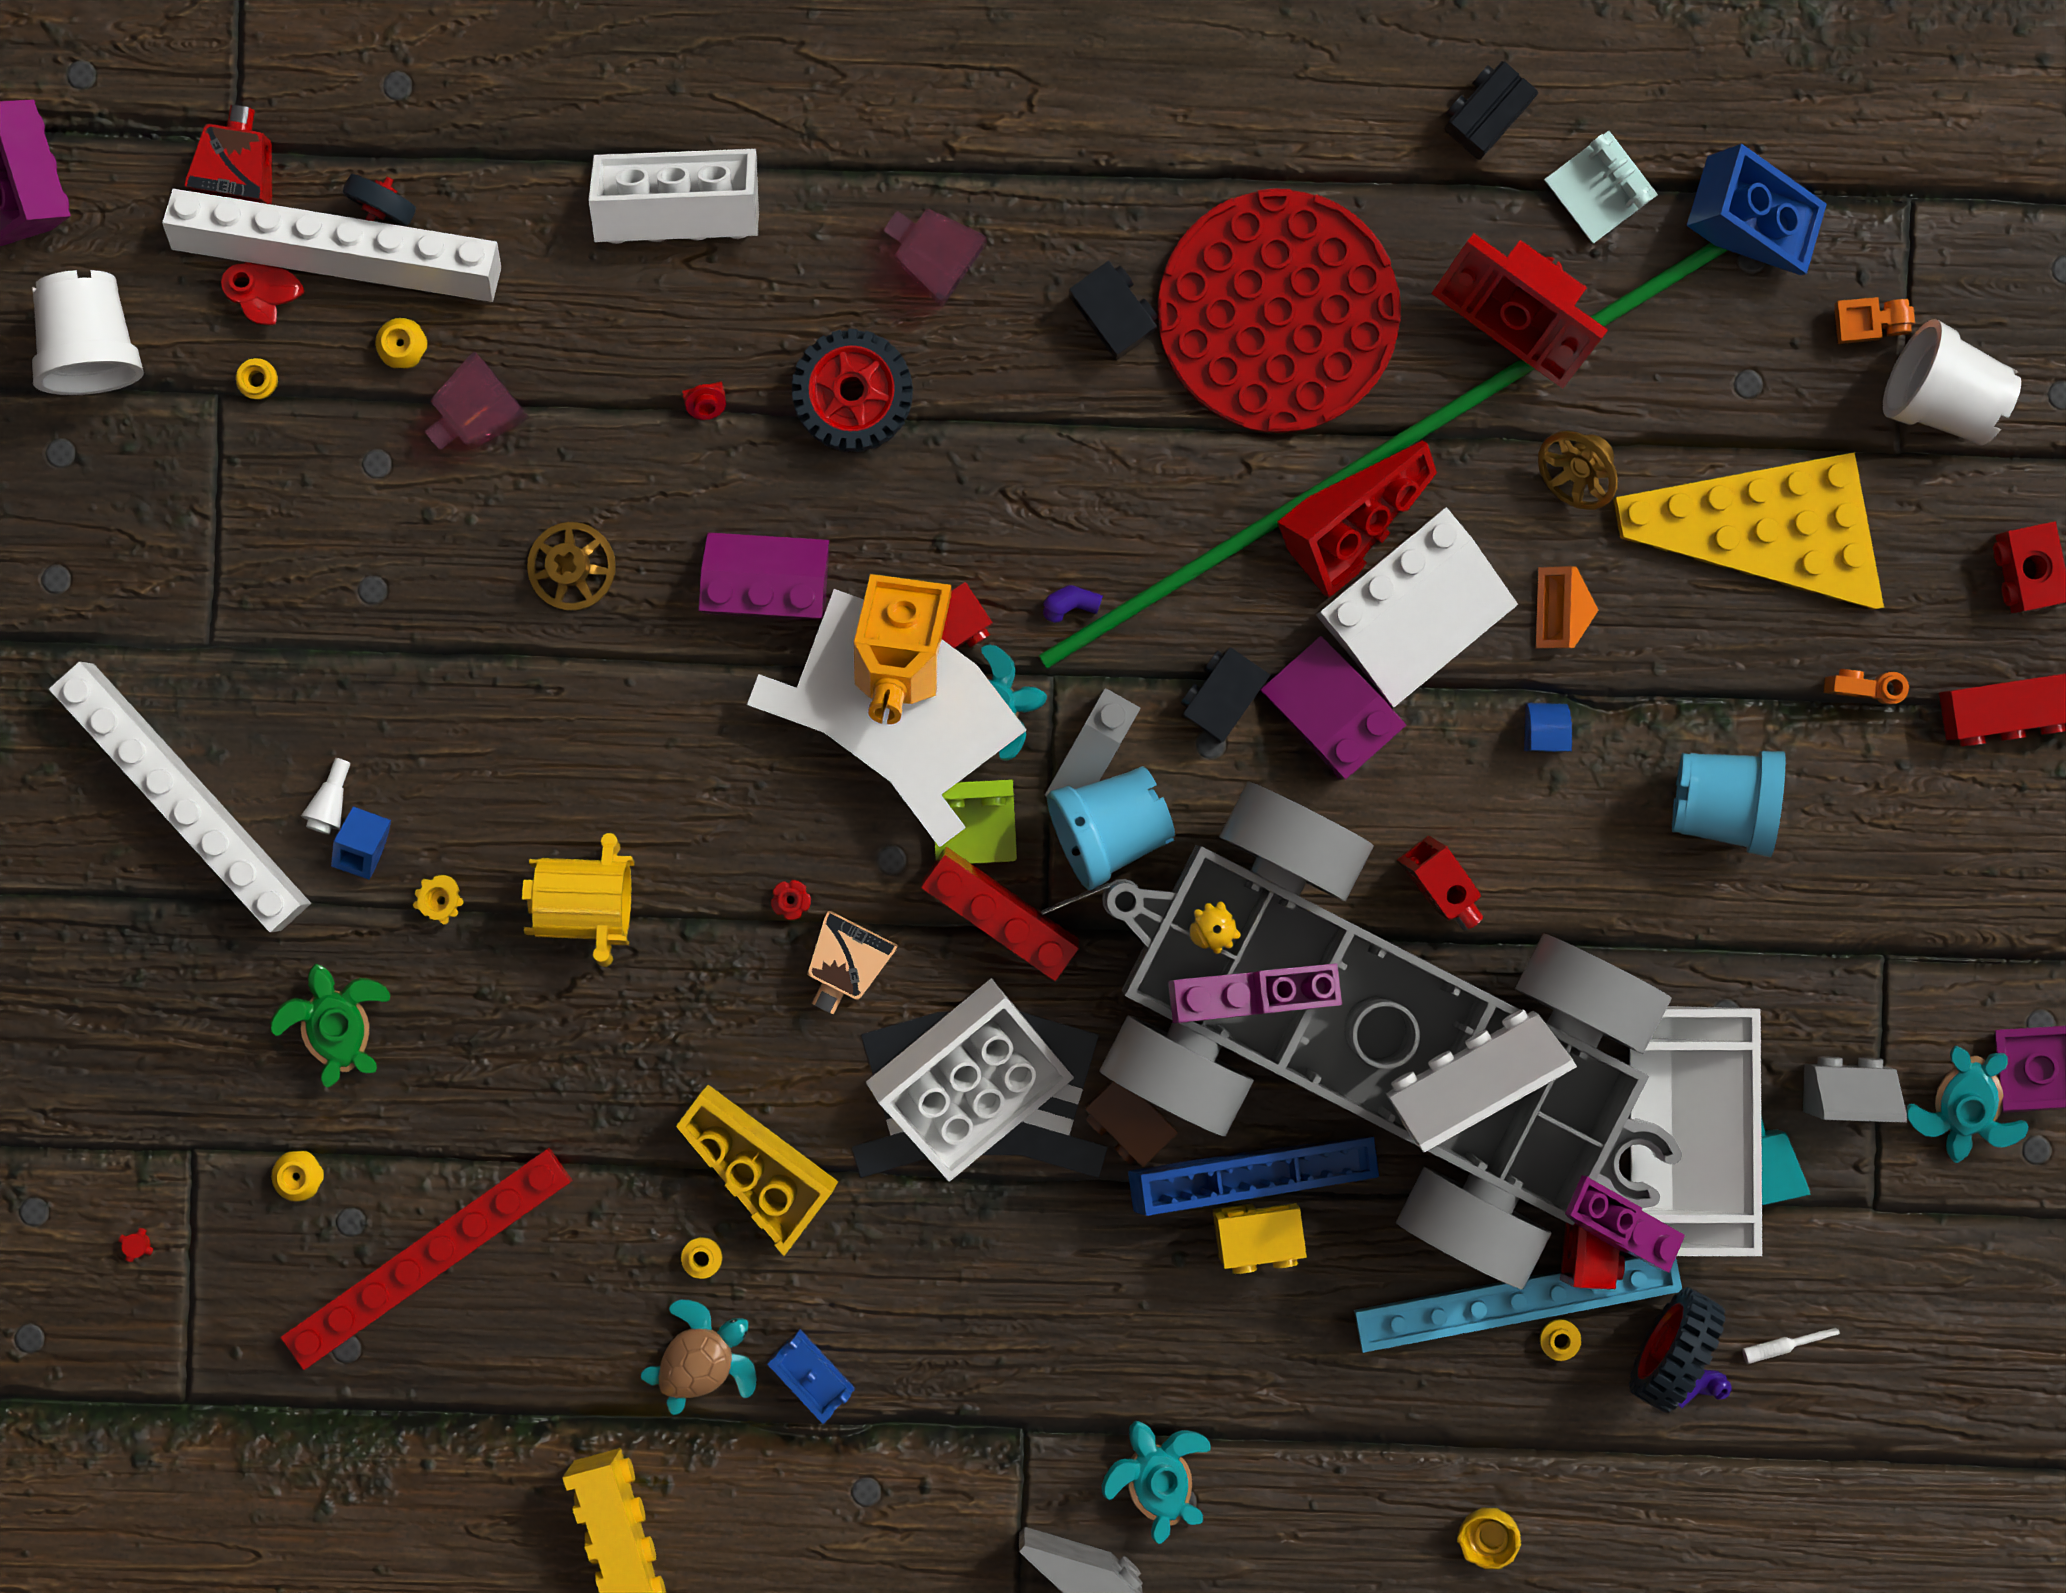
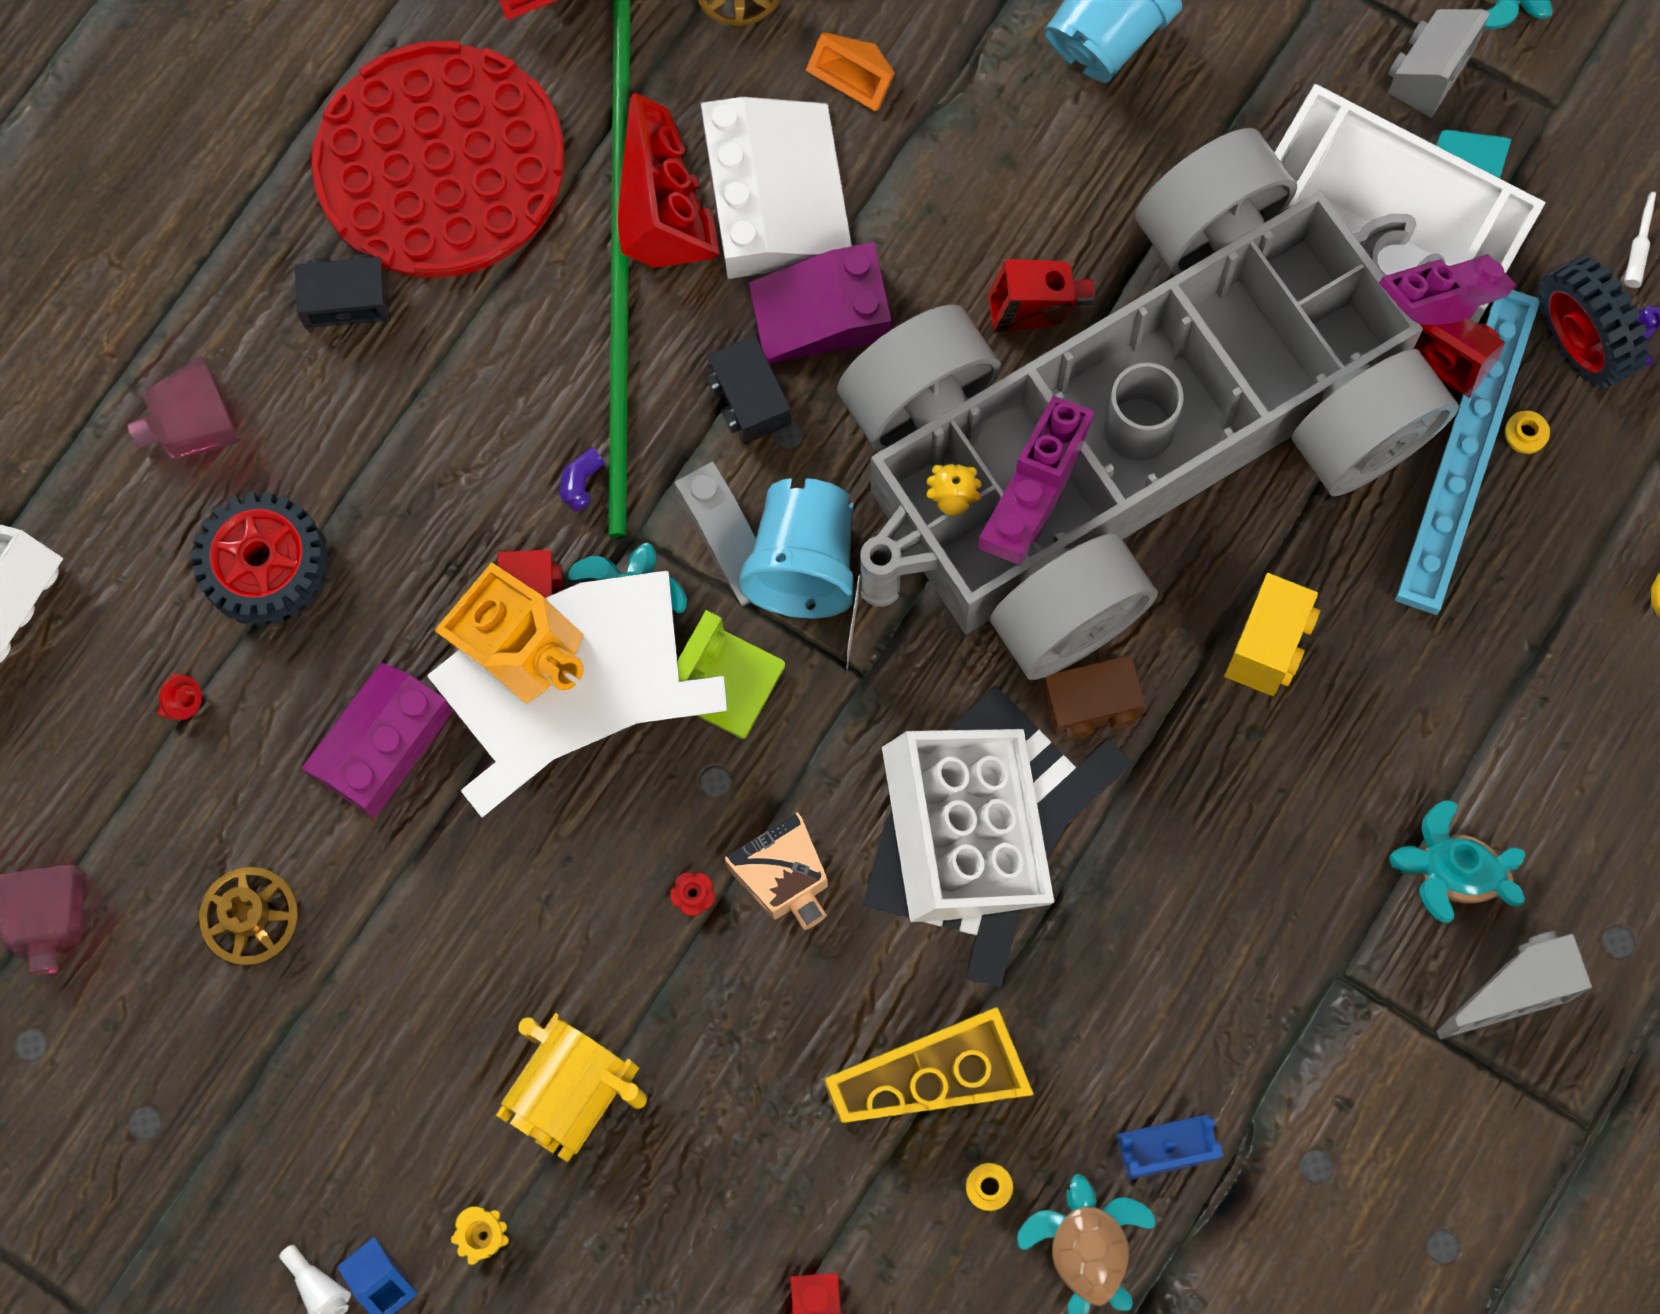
camera: 60 degrees left, 15 degrees down
(1000, 913) = (825, 699): red brick -> none
(1251, 1175) = (1210, 616): blue slope -> none
(1479, 1079) = (1235, 319): white slope -> none
(1548, 727) = (955, 137): blue brick -> none

